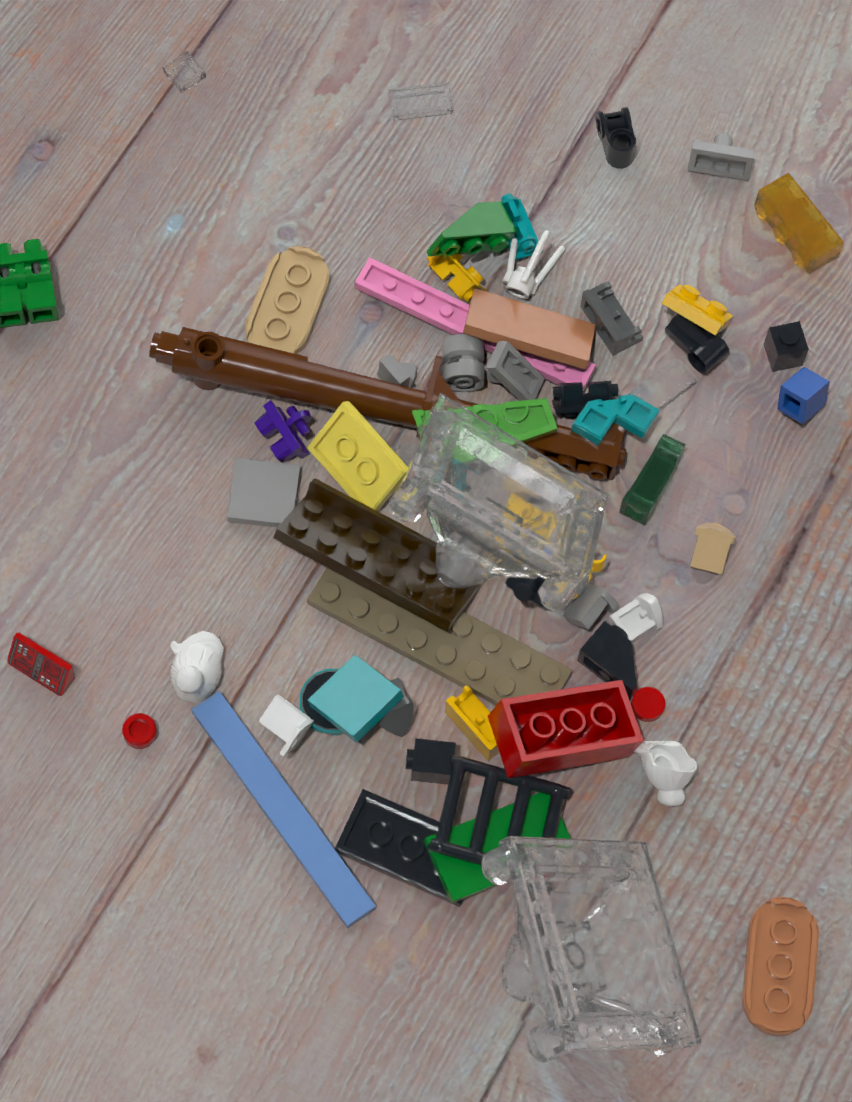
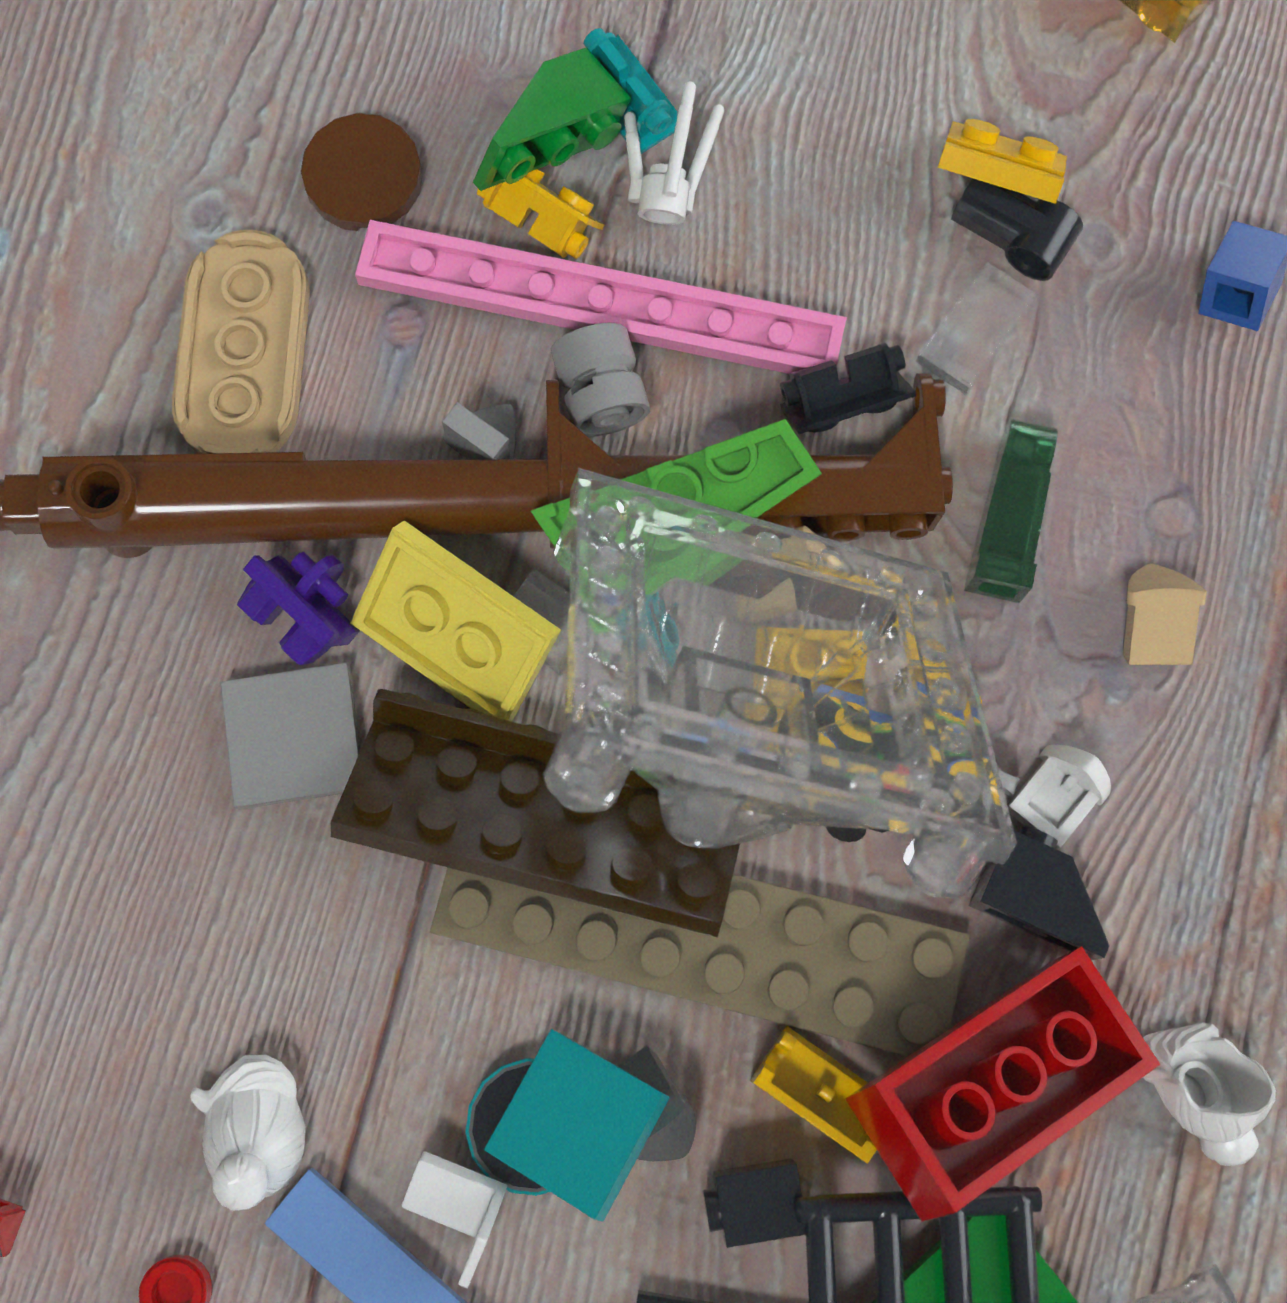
camera: 10 degrees left, 10 degrees up
(371, 233) = (361, 171): none -> reddish brown tile
(514, 372) = (701, 374): light grey tile -> none
(530, 328) = (706, 282): nougat tile -> none
(610, 318) = (844, 221): dark grey hinge -> none
(626, 411) = (933, 397): teal tile -> none
(648, 704) = (1132, 962): red tile -> none
(785, 346) = (1184, 189): black brick -> none

